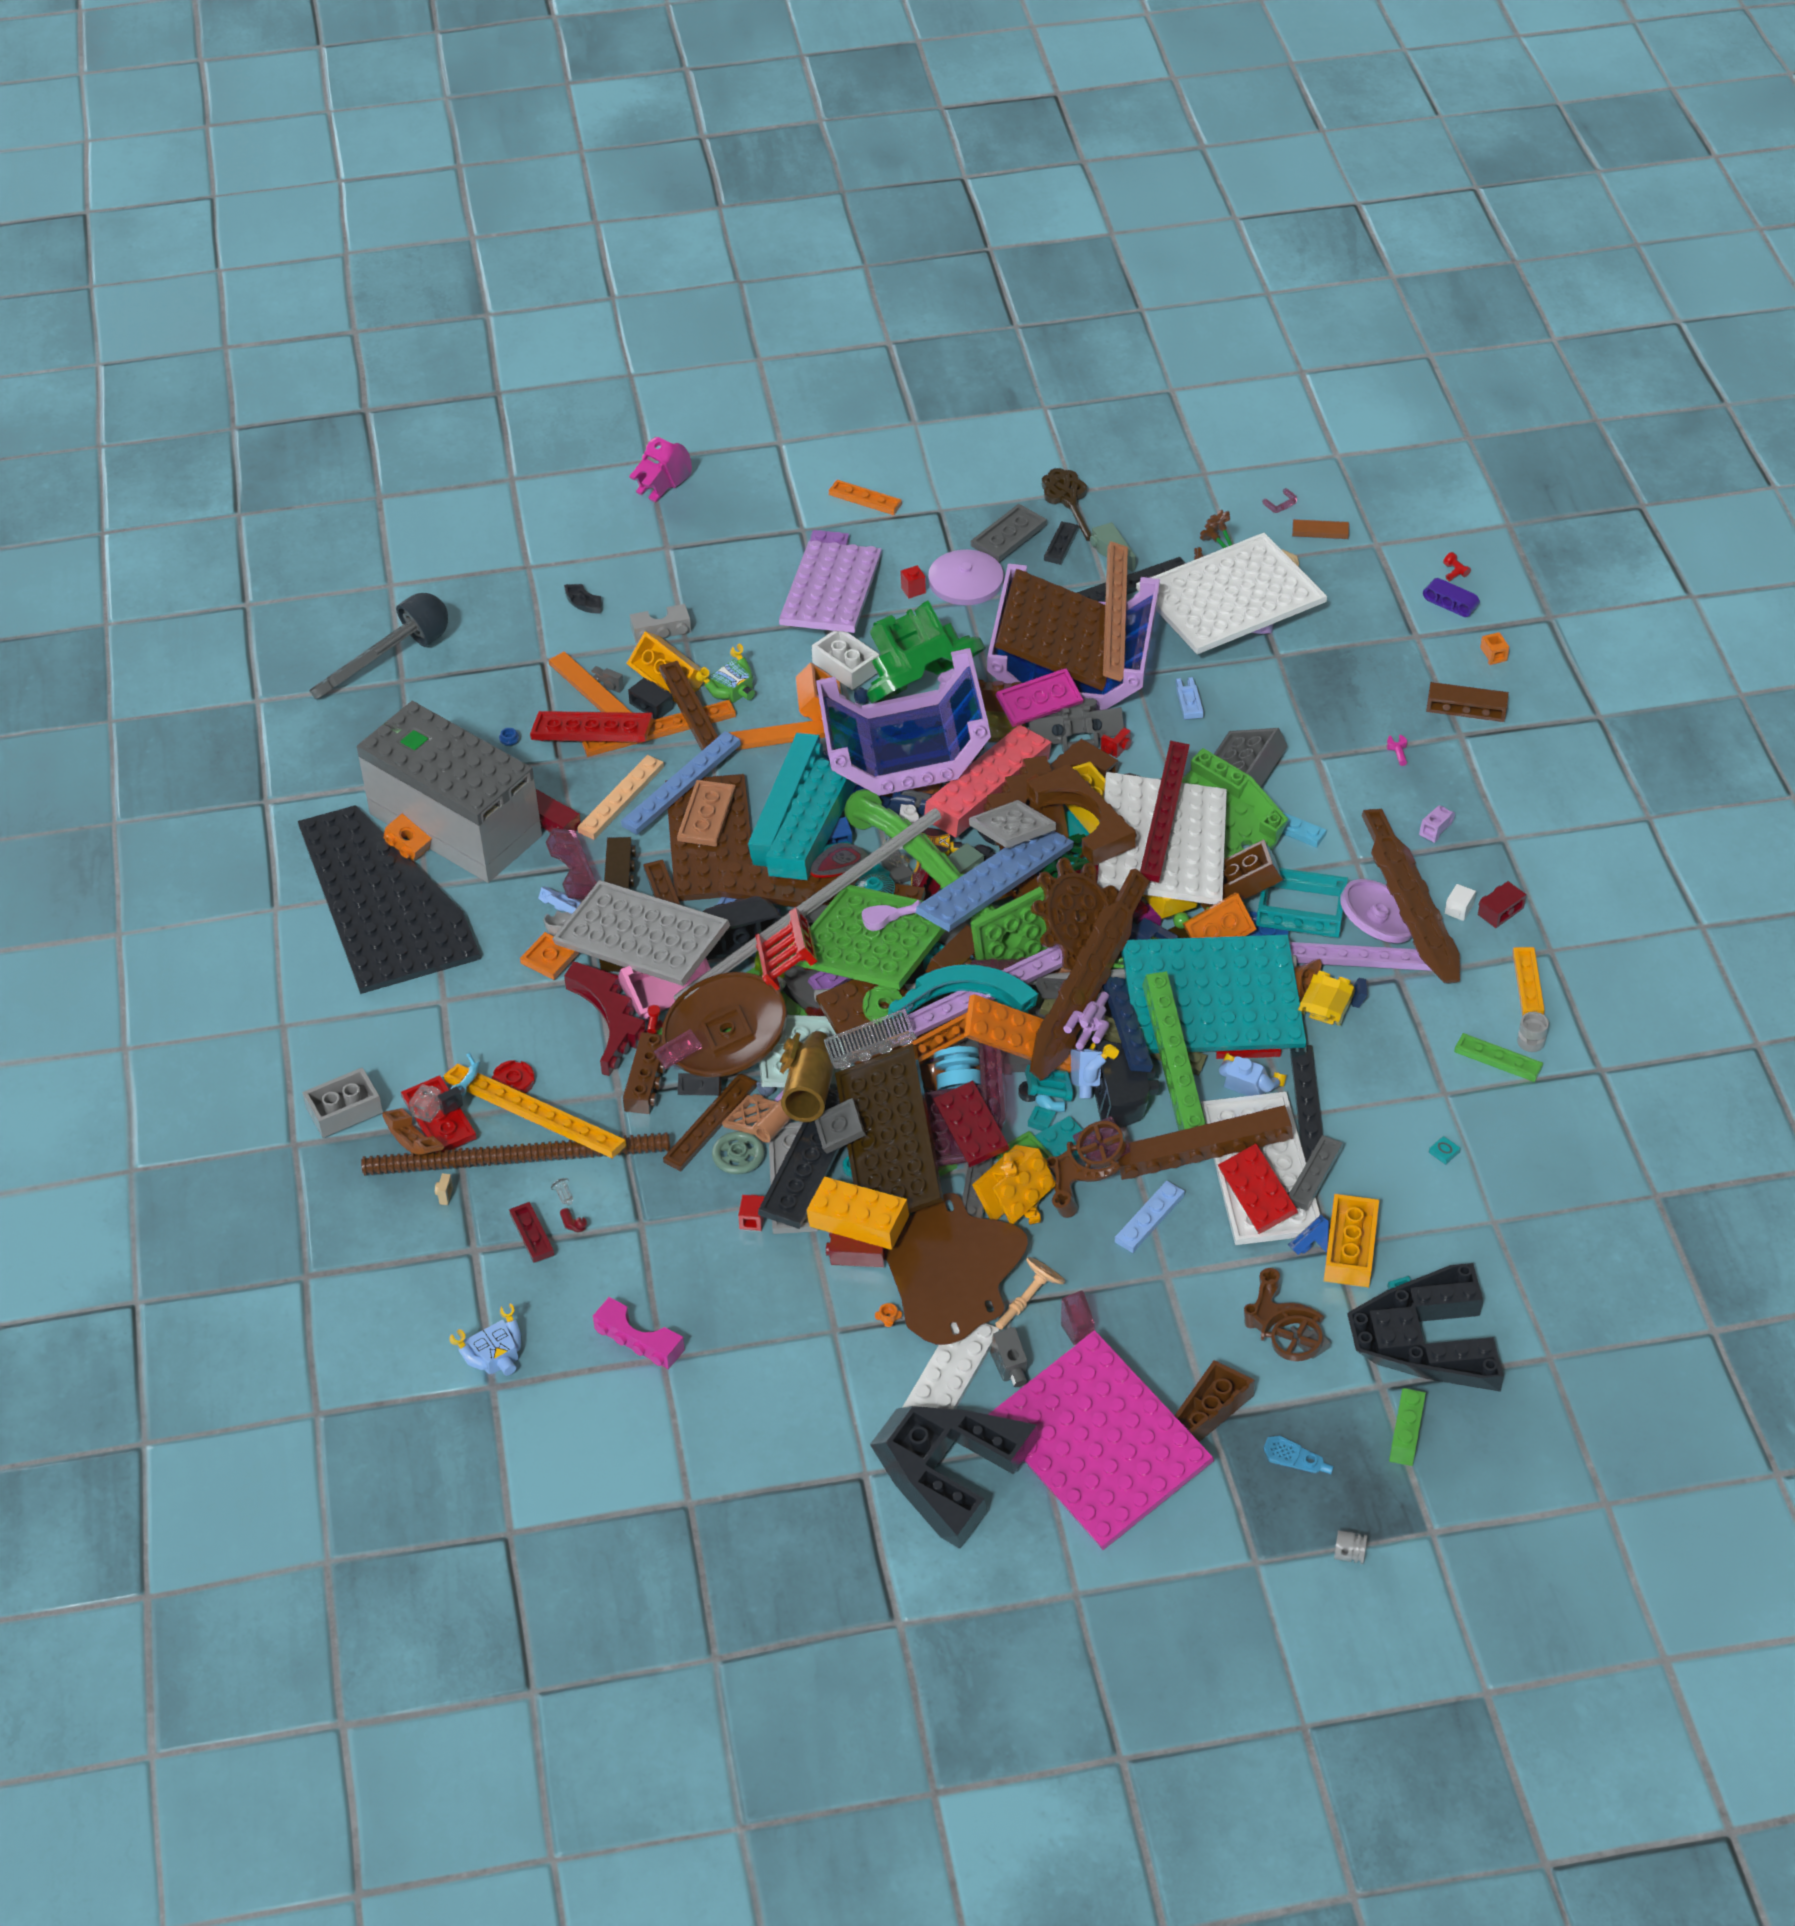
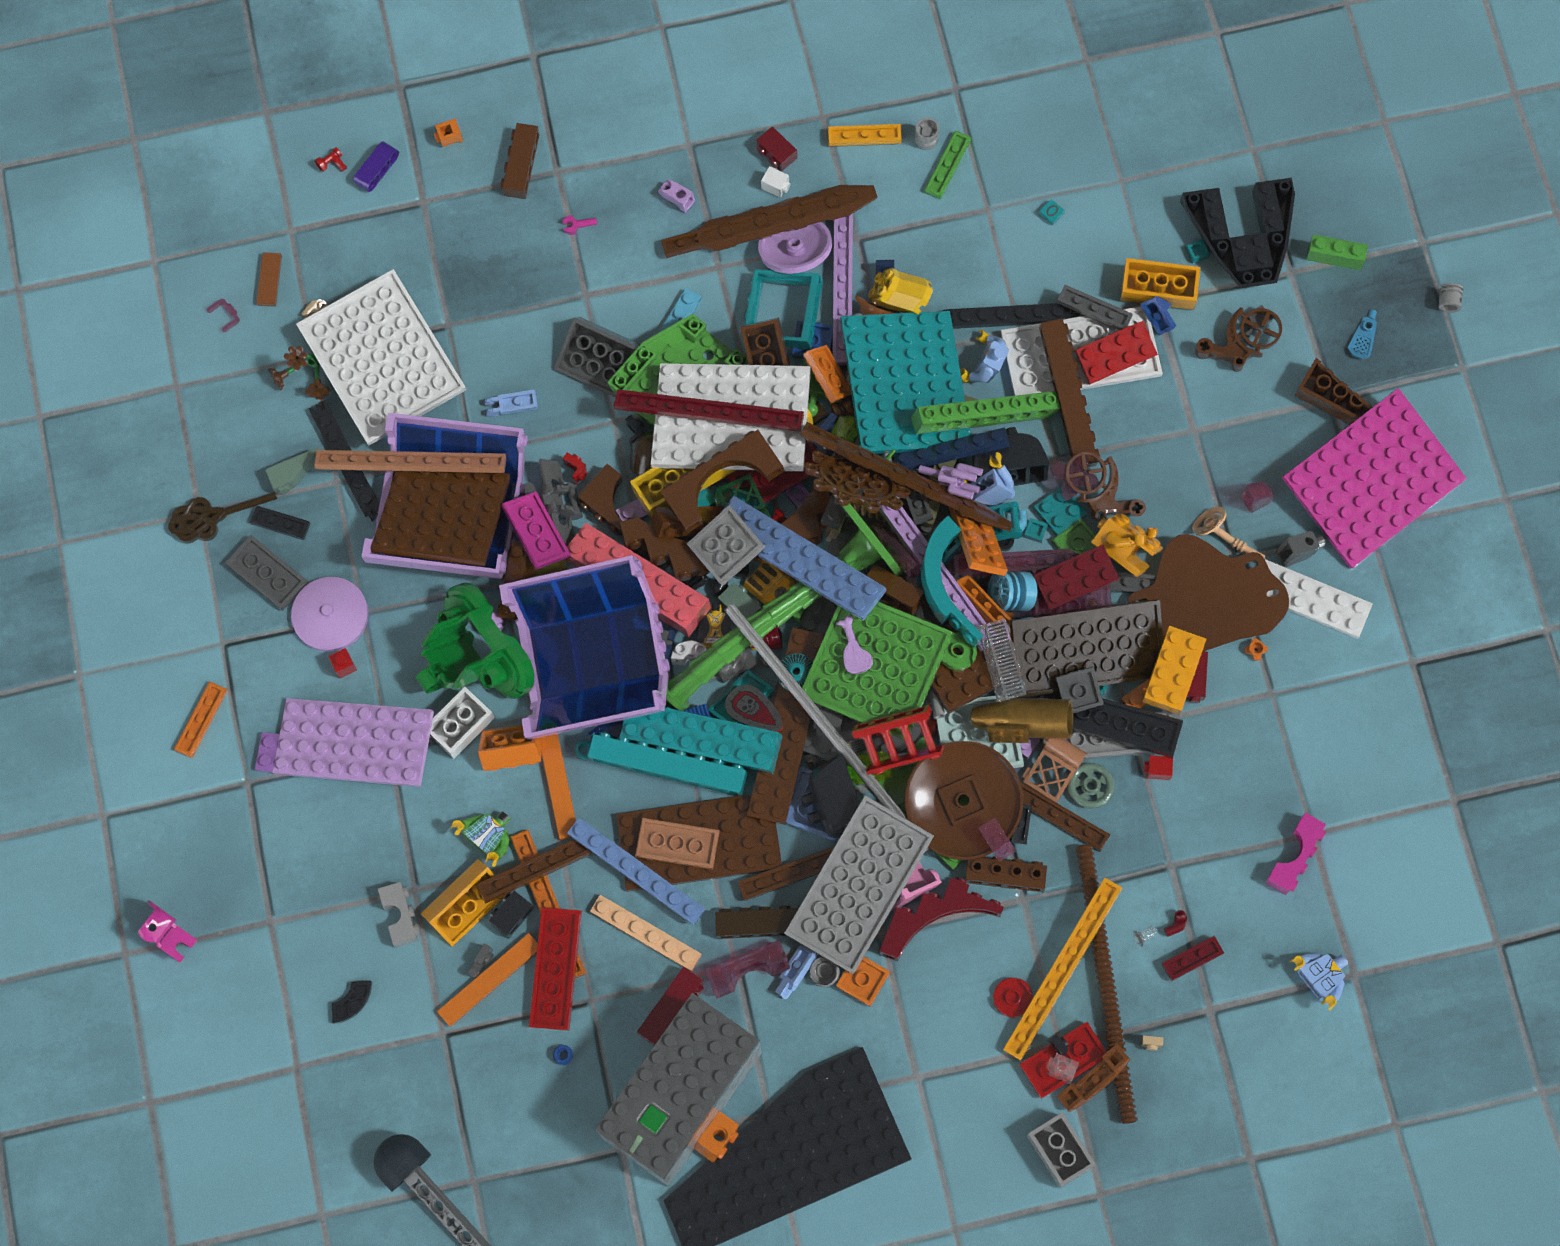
camera: 90 degrees left, 25 degrees up
(473, 1070) = (1041, 1039): medium azure piece -> none
(654, 1022) = (945, 870): red piece -> none
(860, 696) = (506, 707): dark blue plate -> none
(918, 1439) = (1388, 617): black piece -> none
(1149, 1216) = (1136, 442): light blue plate -> none

